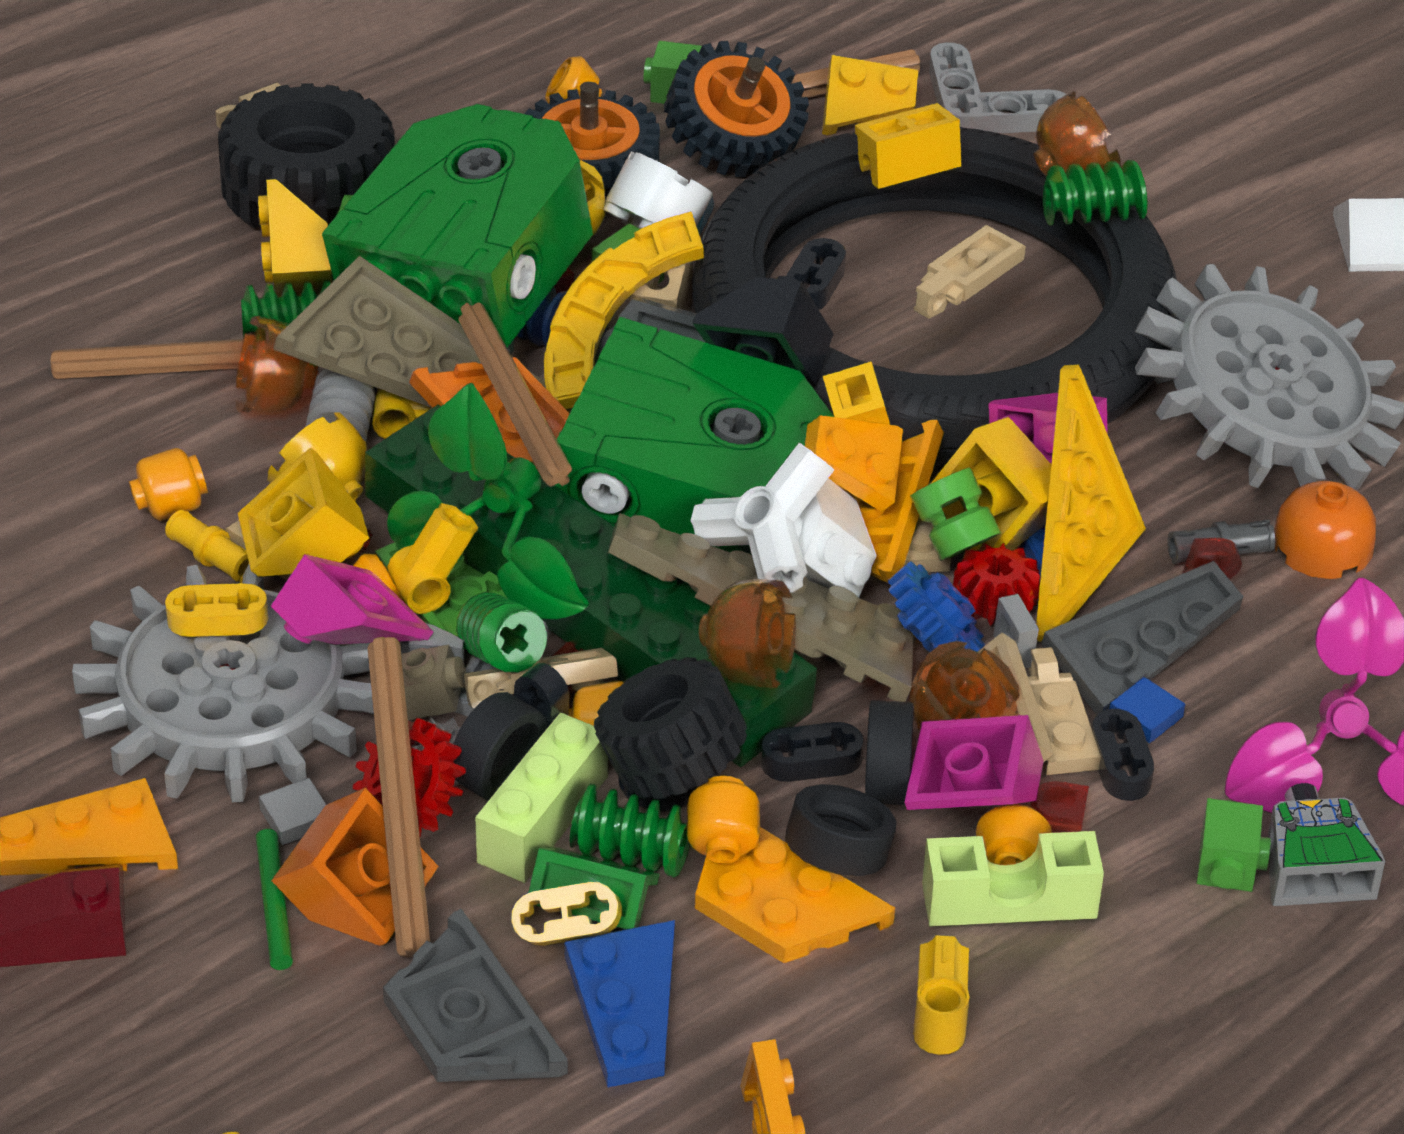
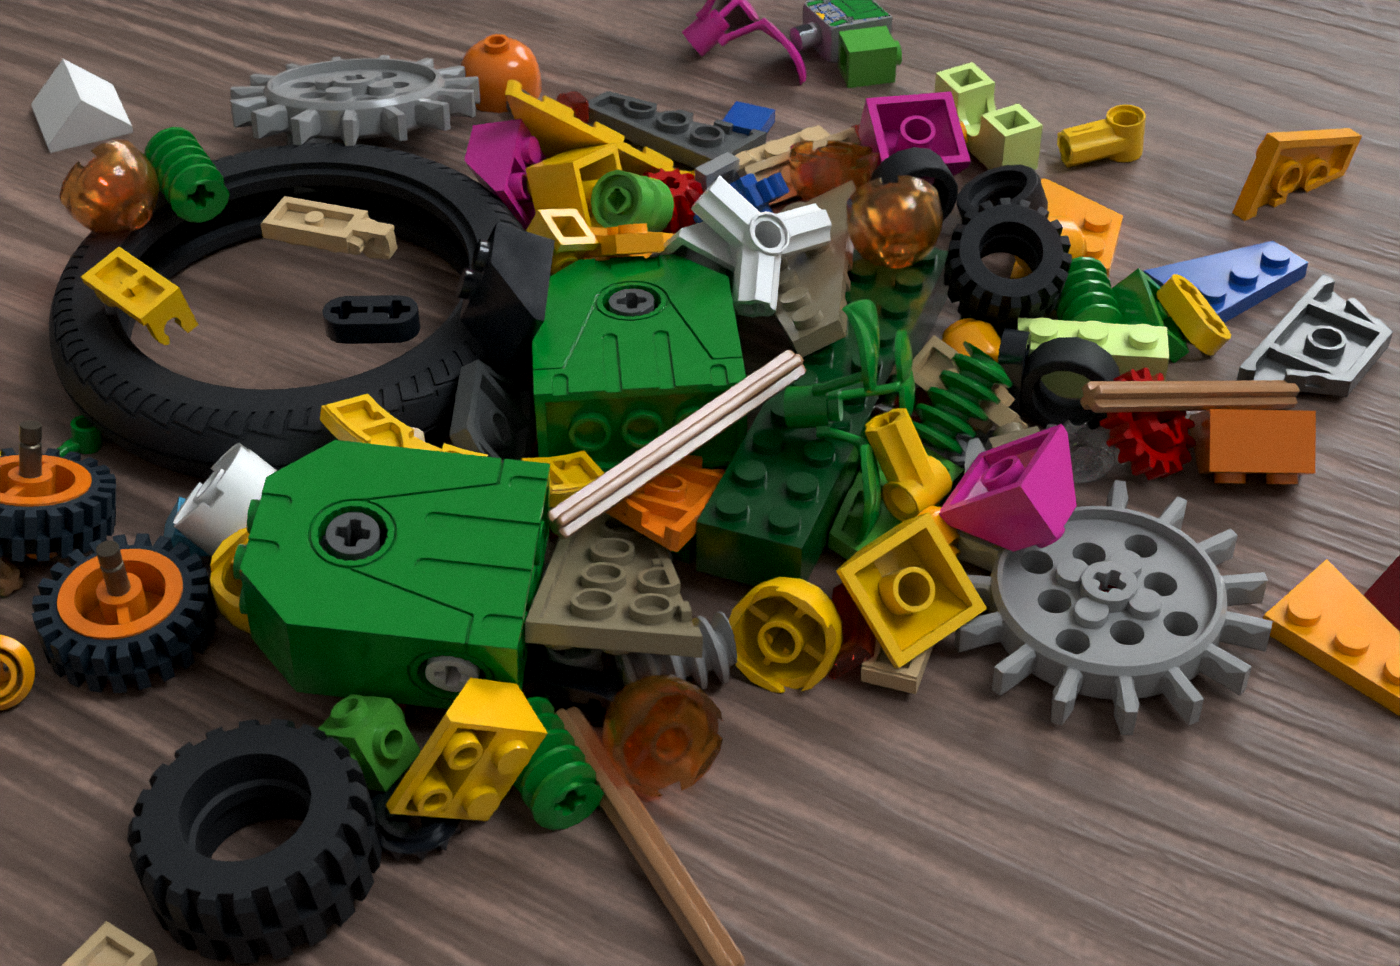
camera: 110 degrees left, 0 degrees up
(168, 483) = (883, 751): light orange head -> none
(209, 544) = (938, 693): yellow pin -> none
(216, 610) = (1075, 595): yellow beam -> none
(273, 901) = (1306, 493): green bar -> none
(292, 809) = (1211, 511): light grey tile -> none
(1132, 752) = (804, 115): black beam -> none

